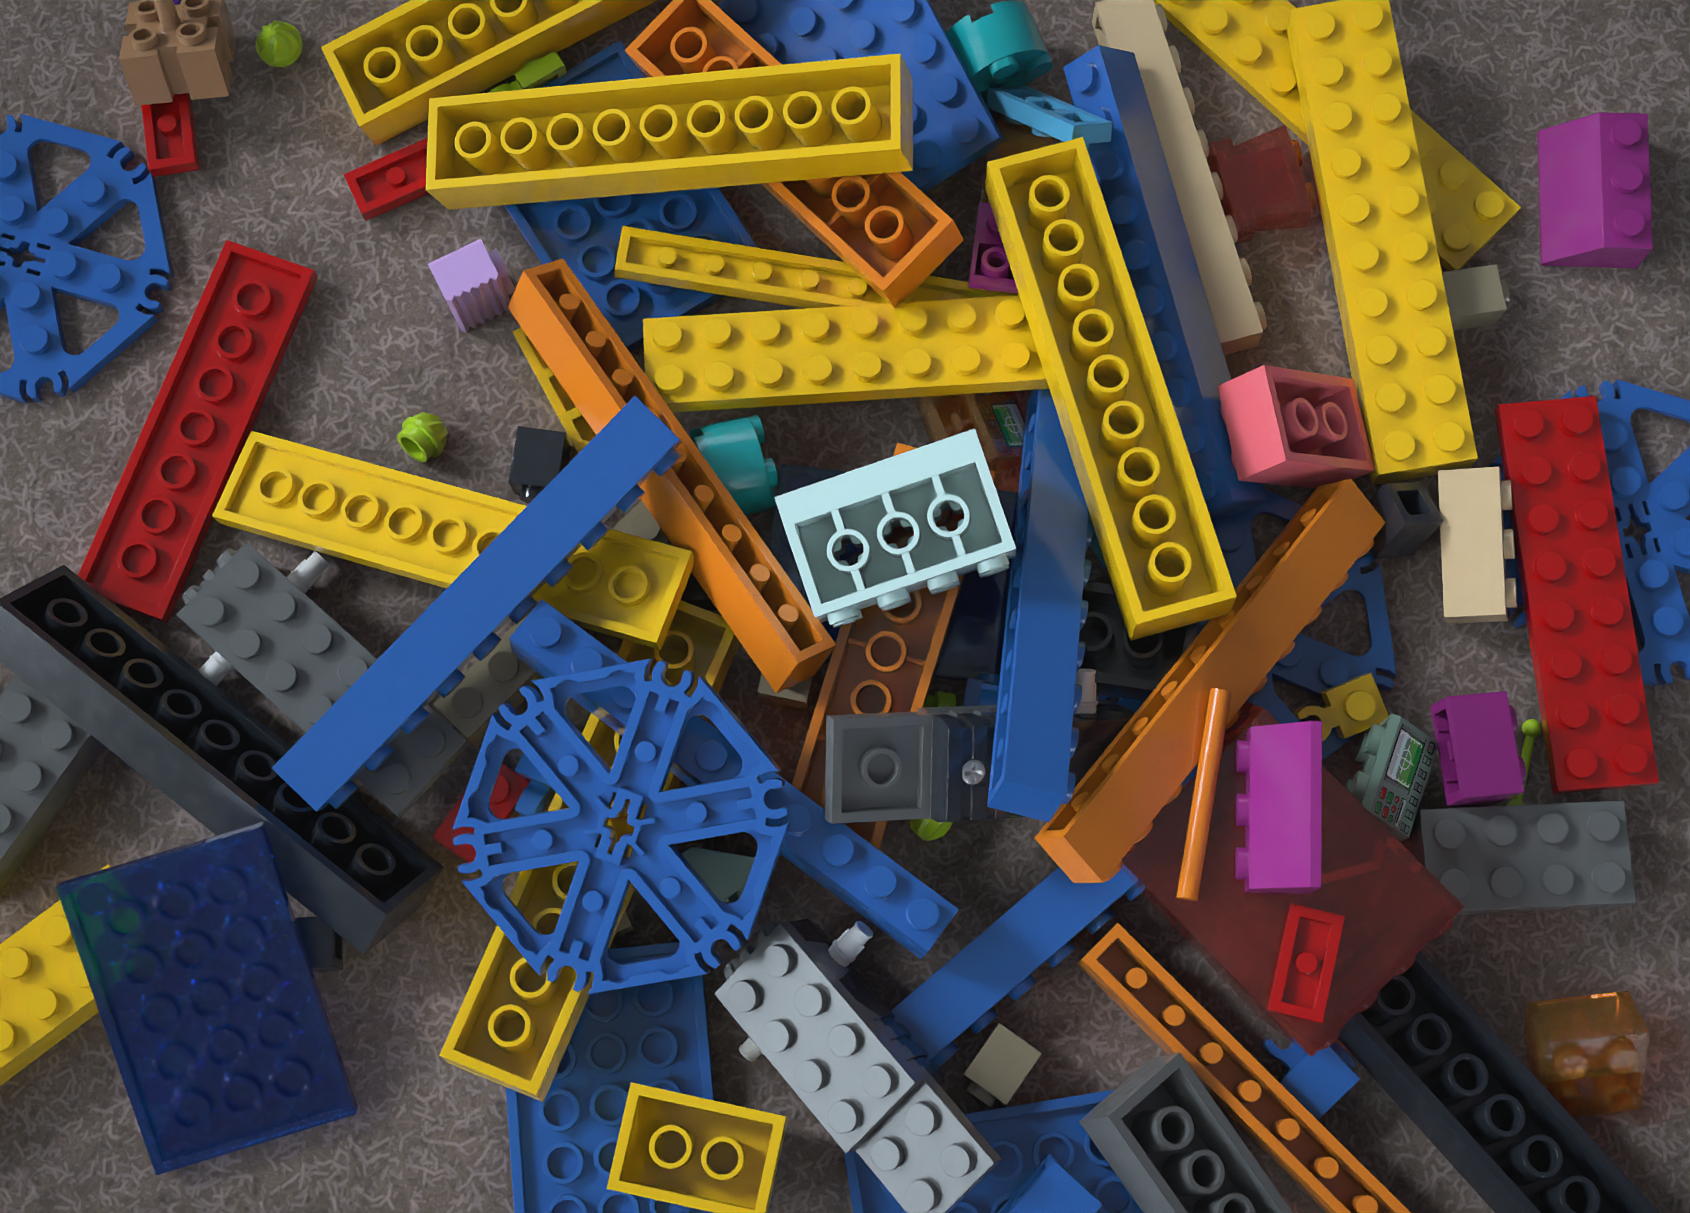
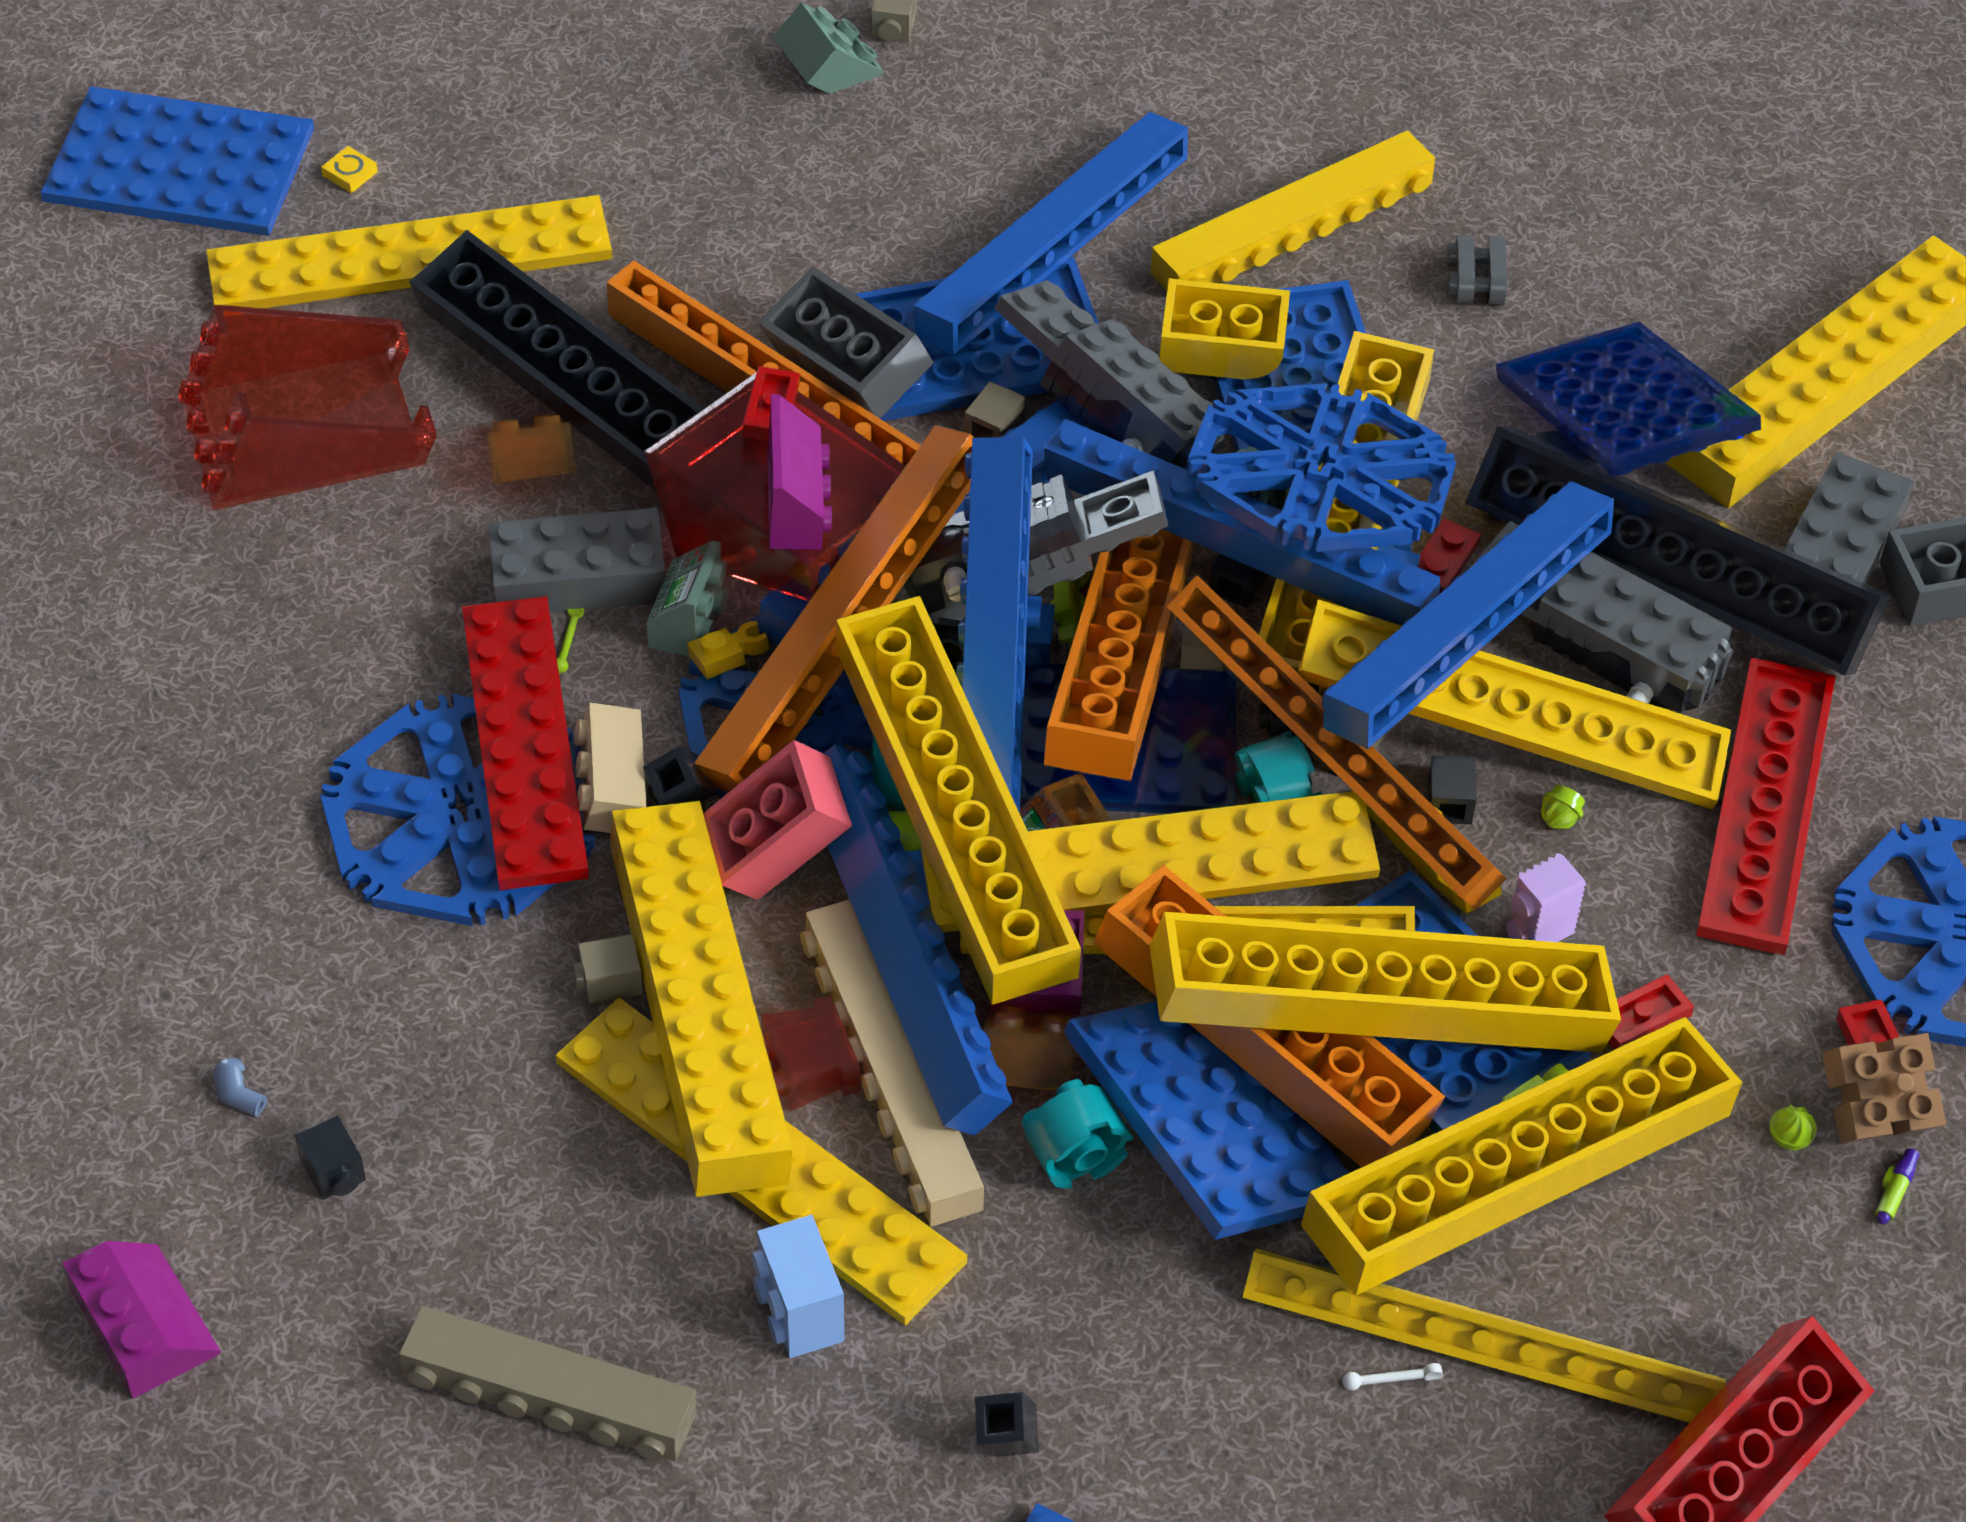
camera: 170 degrees right, 25 degrees down
(889, 494) = (1127, 655): light aqua brick -> none
(1048, 115) = (1019, 1042): dark azure plate -> none
(1204, 794) = (854, 508): orange bar -> none
(1478, 749) = (618, 610): magenta slope -> none
(1595, 191) = (484, 1067): magenta slope -> none

